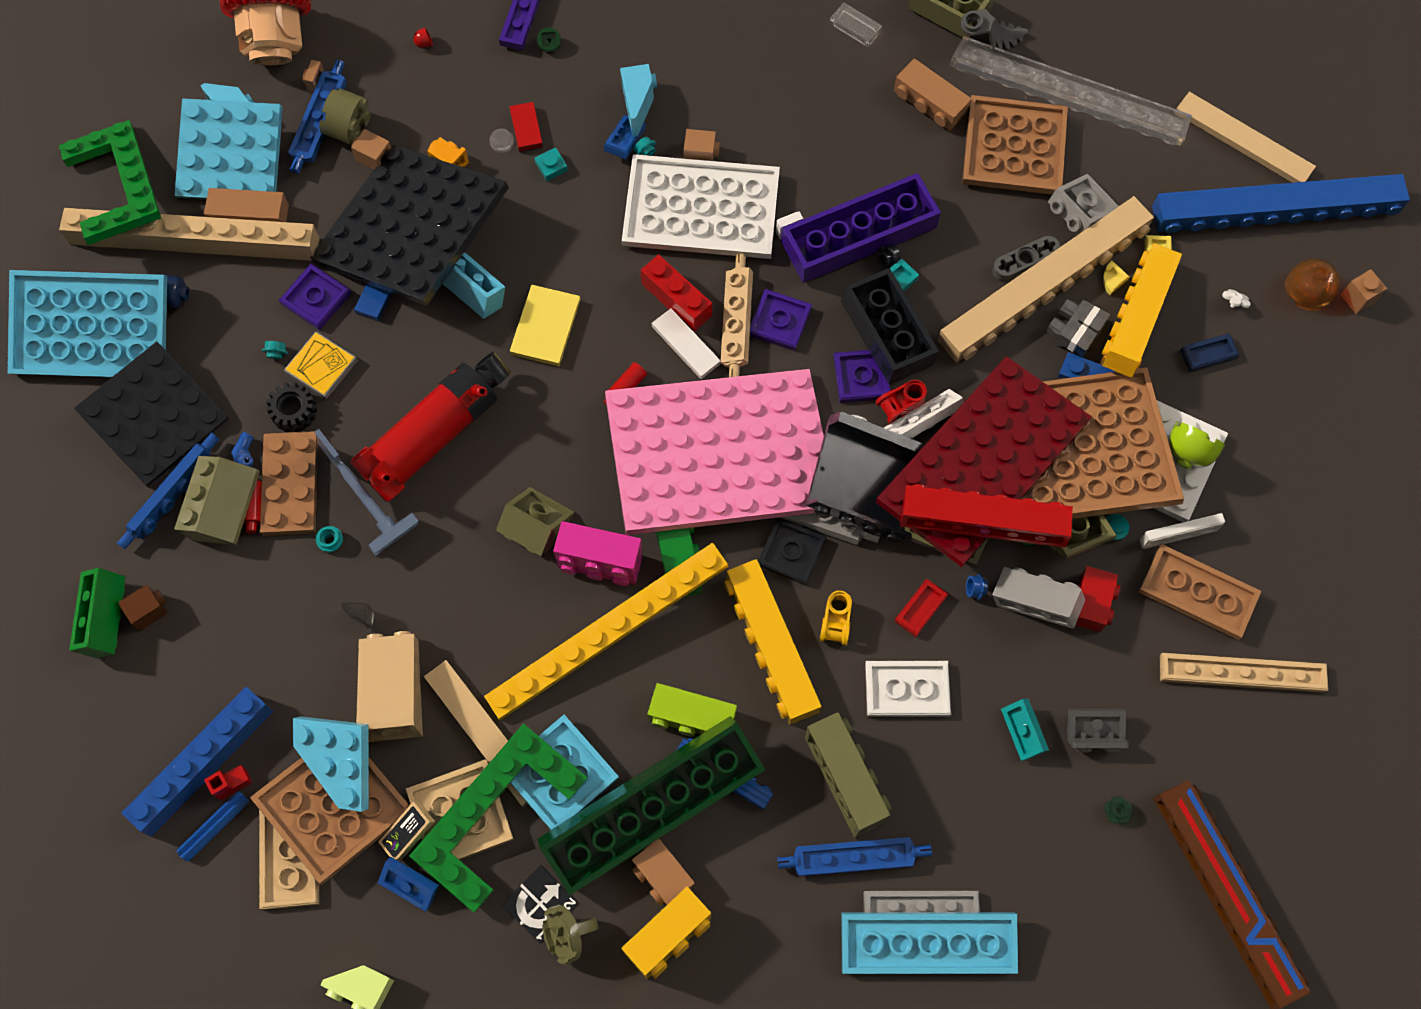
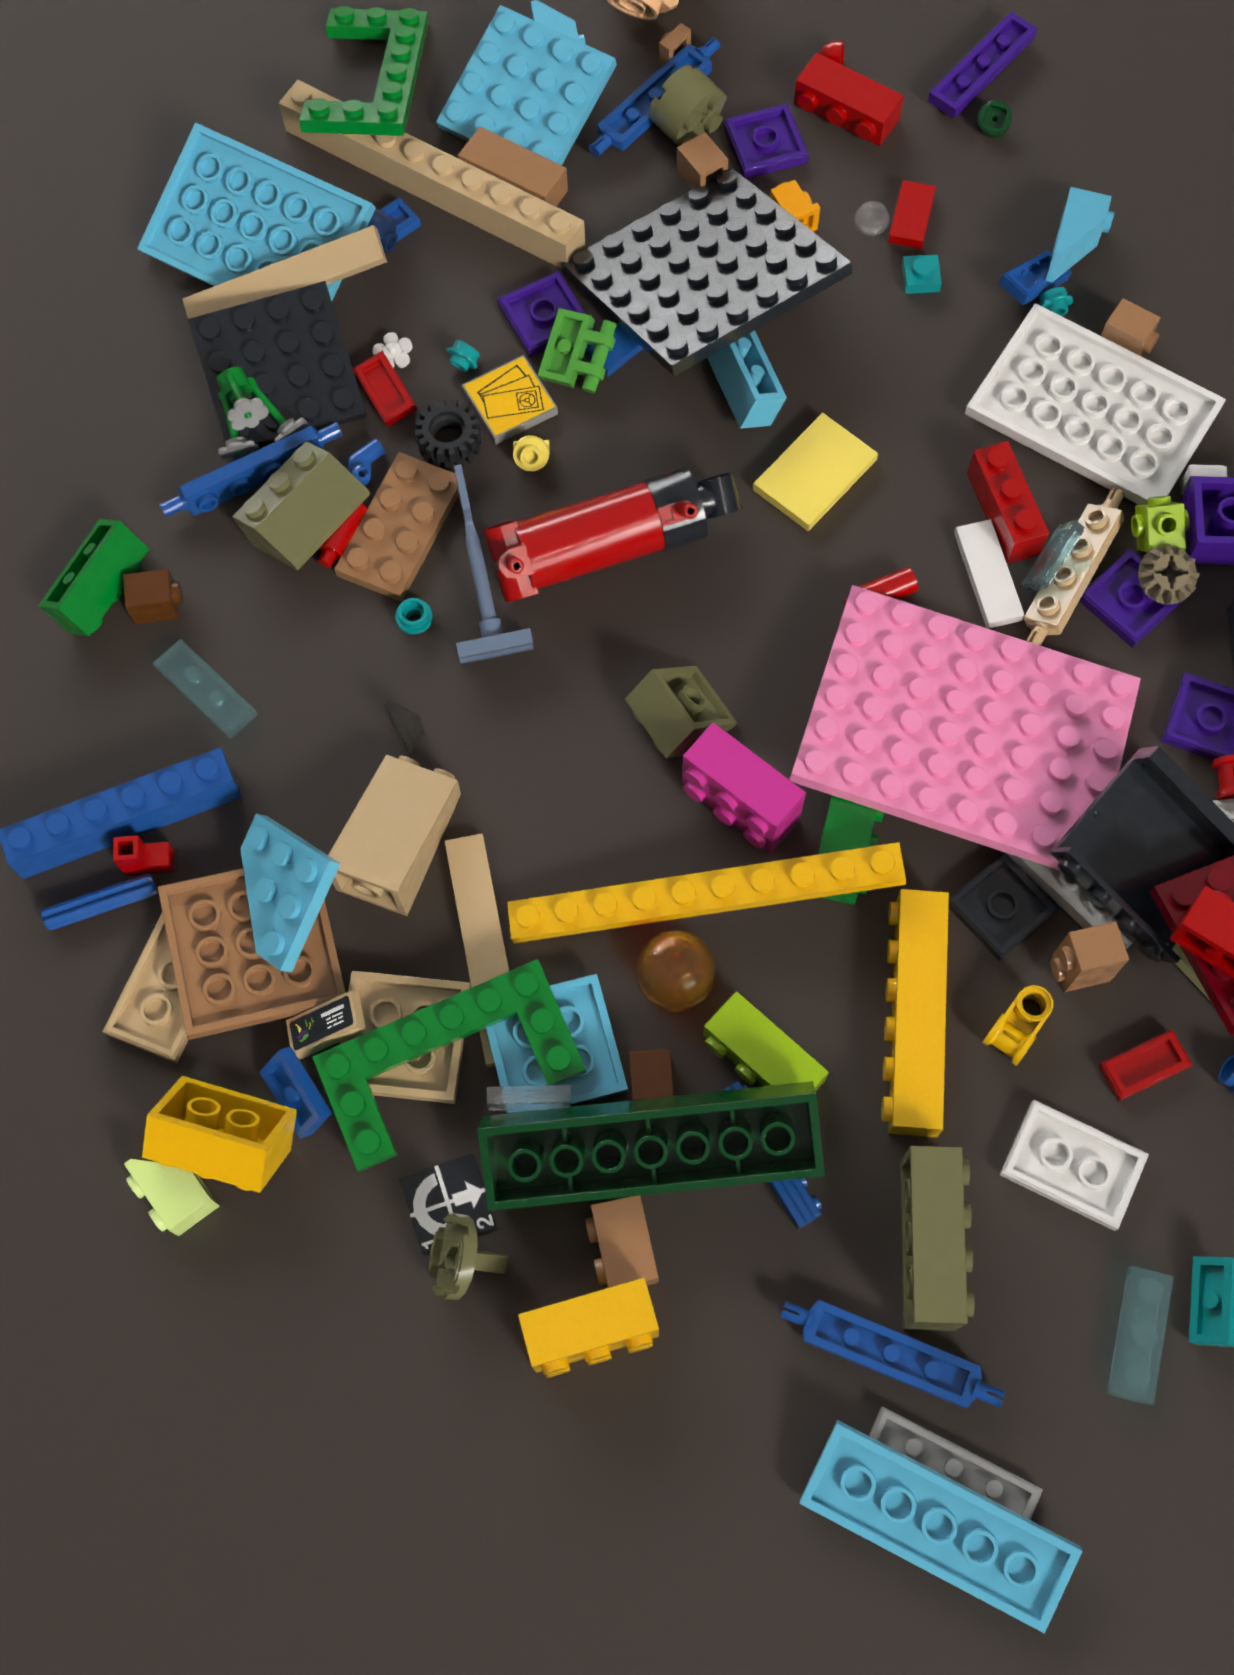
camera: 30 degrees right, 0 degrees up
(132, 441) = (246, 413): none -> plant
(140, 337) = (323, 263): none -> tan tile
(183, 270) = (404, 217): none -> blue tile
(211, 652) = (205, 689): none -> clear light blue tile
(224, 366) = (395, 349): none -> white plant
(232, 395) = (385, 389): none -> red tile
(343, 313) = (567, 347): none -> bright green plate
(353, 395) = (531, 453): none -> light yellow plate
(373, 934) = (219, 1134): none -> yellow brick
(406, 116) = (765, 141): none -> dark purple tile
(447, 66) = (848, 99): none -> red brick
(560, 812) = (528, 1097): none -> clear tile
(612, 687) = (676, 970): none -> clear orange cylinder
(628, 760) = (651, 1074): none -> reddish brown brick
(720, 315) = (1052, 556): none -> clear light blue tile
(776, 266) = (1160, 523): none -> lime brick
(792, 306) = (1156, 585): none -> dark tan gear
(858, 558) = (1089, 957): none -> medium nougat brick
(992, 771) = (1140, 1335): none -> clear light blue plate

